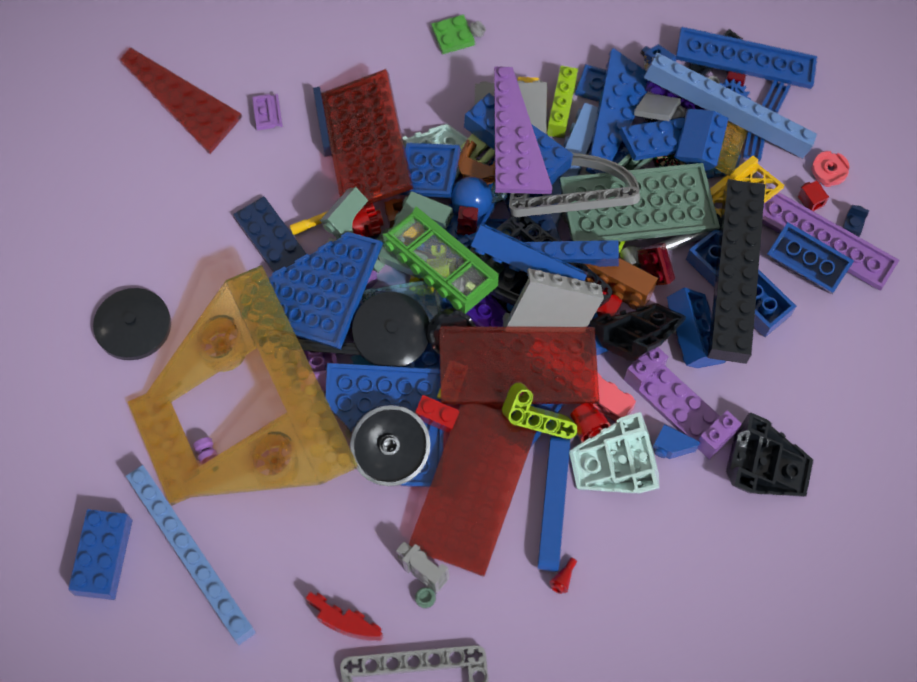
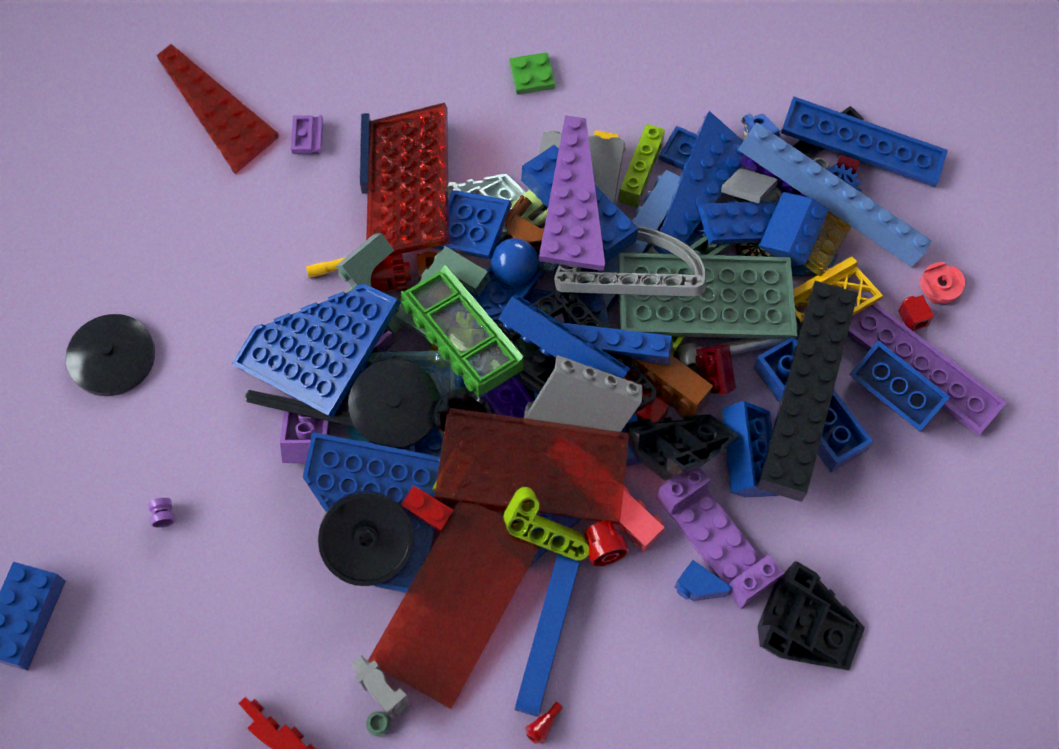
camera: 10 degrees right, 0 degrees up
(191, 555) = (121, 633): medium blue brick -> none
(269, 234) = (282, 273): dark blue plate -> none
(308, 429) = (276, 504): clear yellow wing -> none
(467, 220) = (503, 288): dark red brick -> none
(477, 29) = (560, 70): light grey plate -> none
(617, 459) = (631, 593): light aqua wedge -> none
(760, 151) = (859, 259): blue tile -> none
(780, 86) = (899, 180): blue tile -> none
(855, 219) = (962, 347): dark blue bracket -> none

